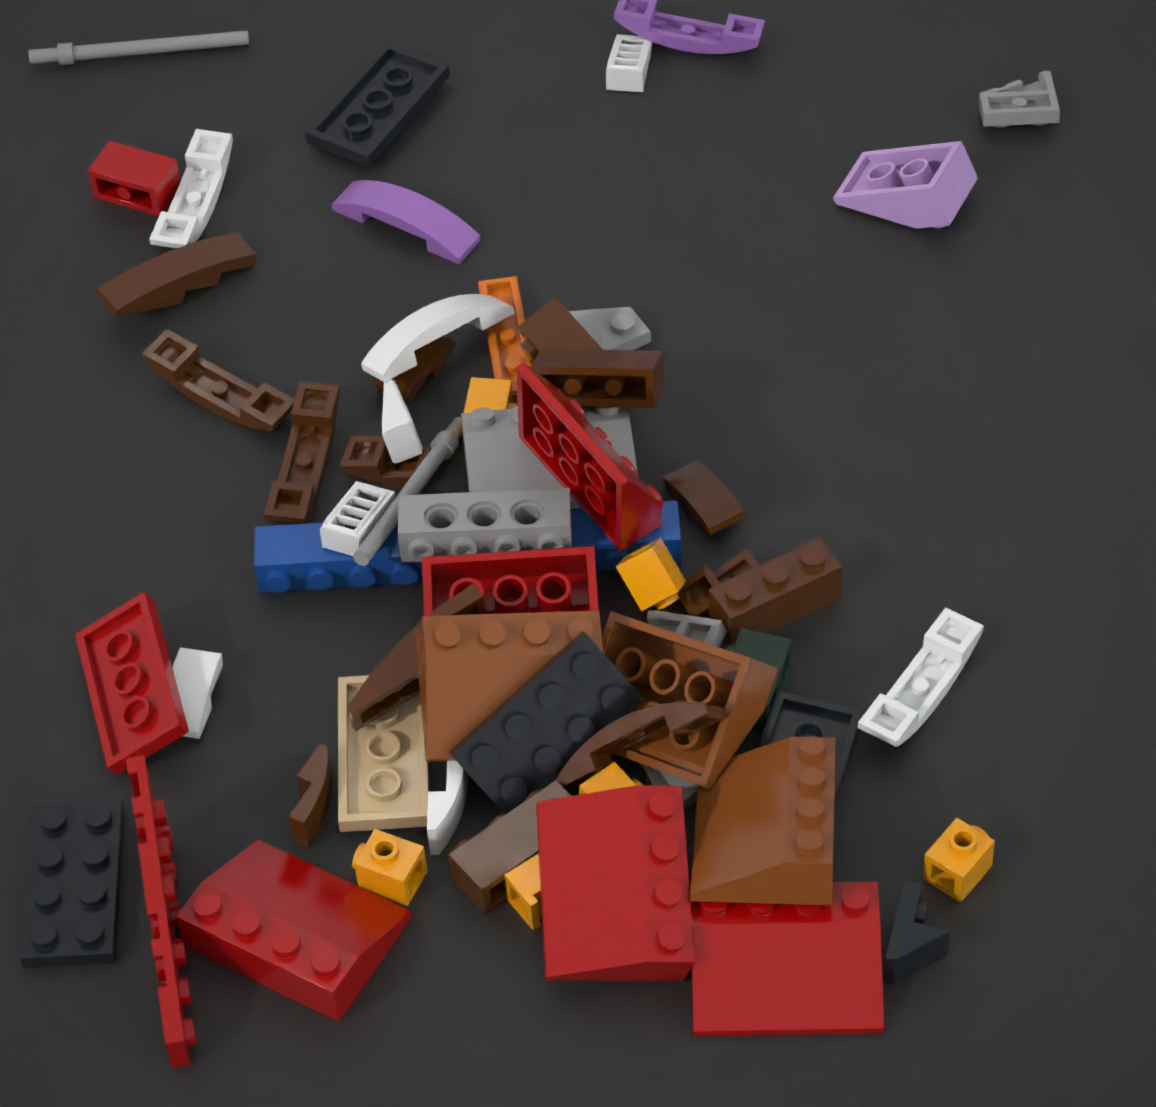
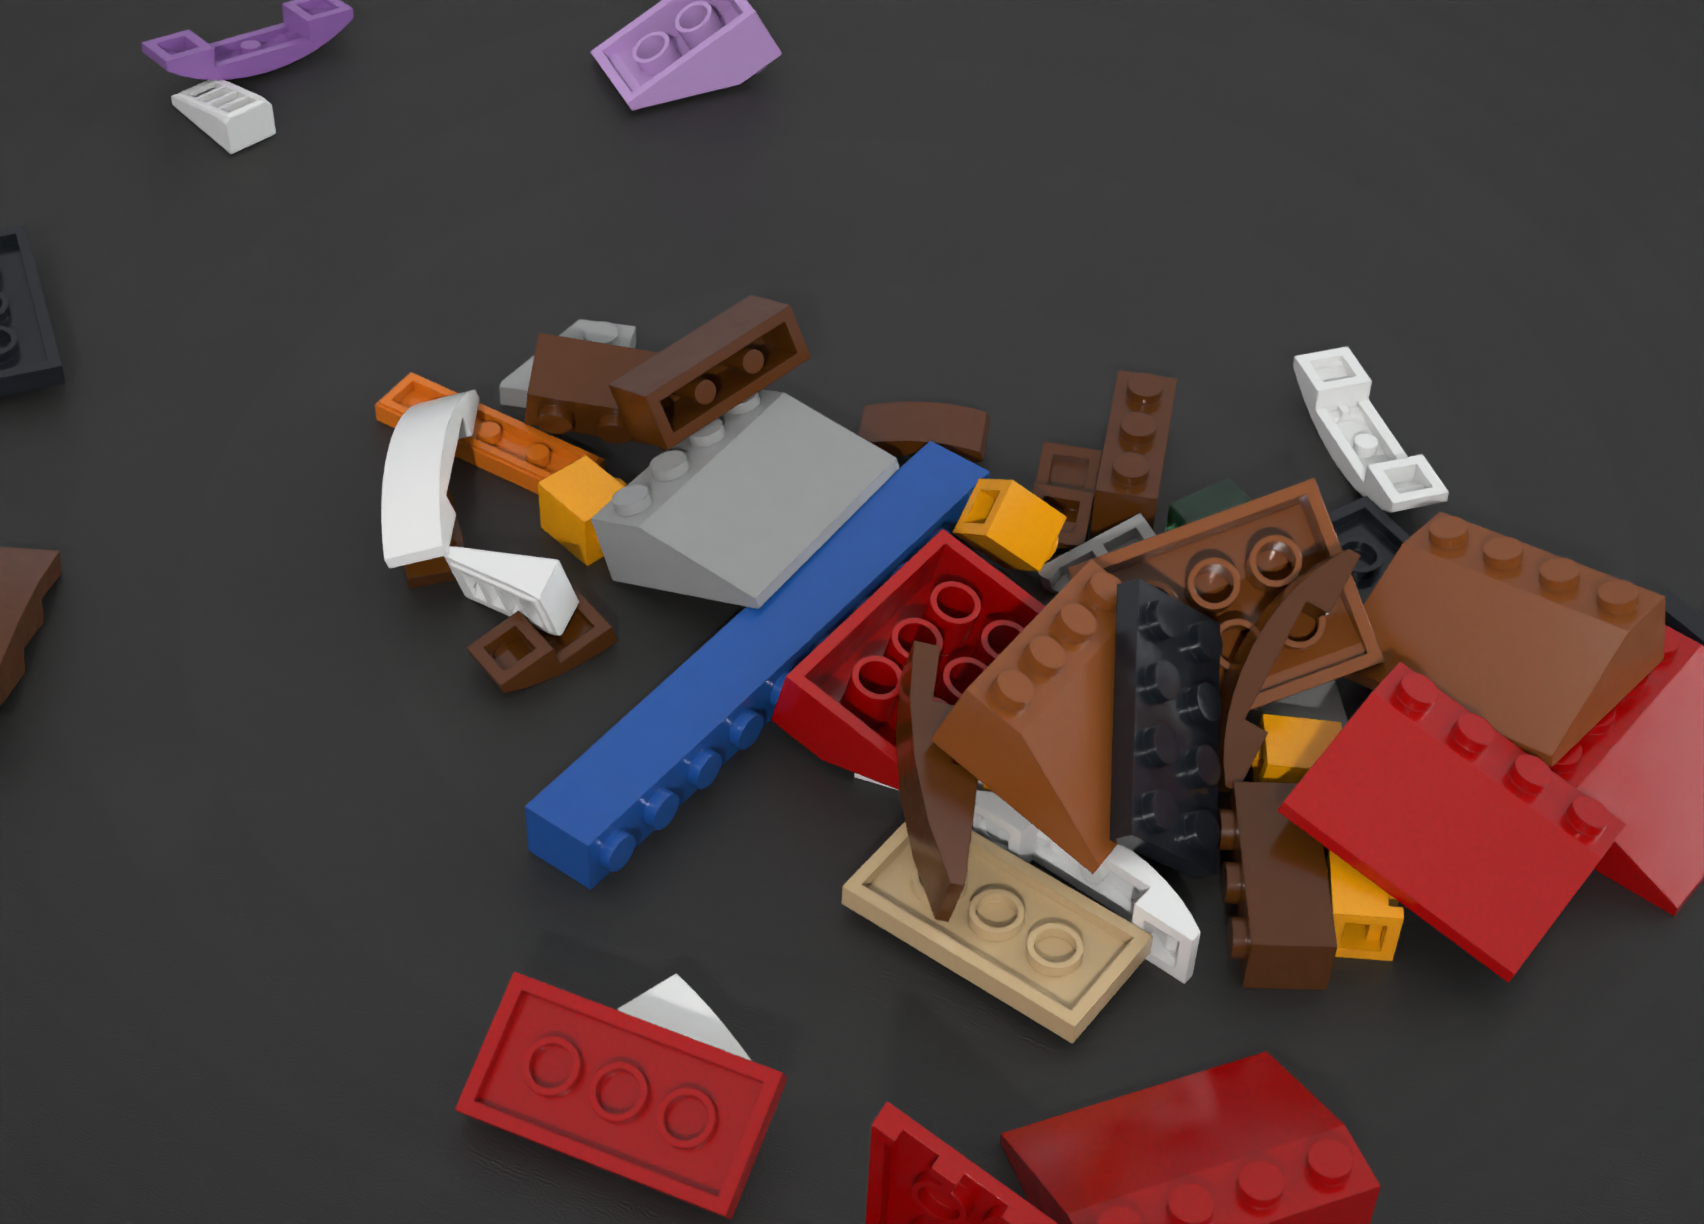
camera: 55 degrees left, 5 degrees down
(214, 388) = (226, 721): reddish brown slope -> none
(306, 453) = (440, 707): reddish brown slope -> none
(315, 793) = (997, 1018): reddish brown slope -> none
(345, 540) = (651, 734): white slope -> none
(390, 867) = (1193, 1022): light orange brick -> none
(412, 212) = (185, 389): medium lavender slope -> none
(442, 449) = (595, 585): light grey bar -> none
(483, 522) = (798, 596): light grey brick -> none
(585, 461) = (843, 436): red slope -> none
(958, 859) = (1638, 547): light orange brick -> none

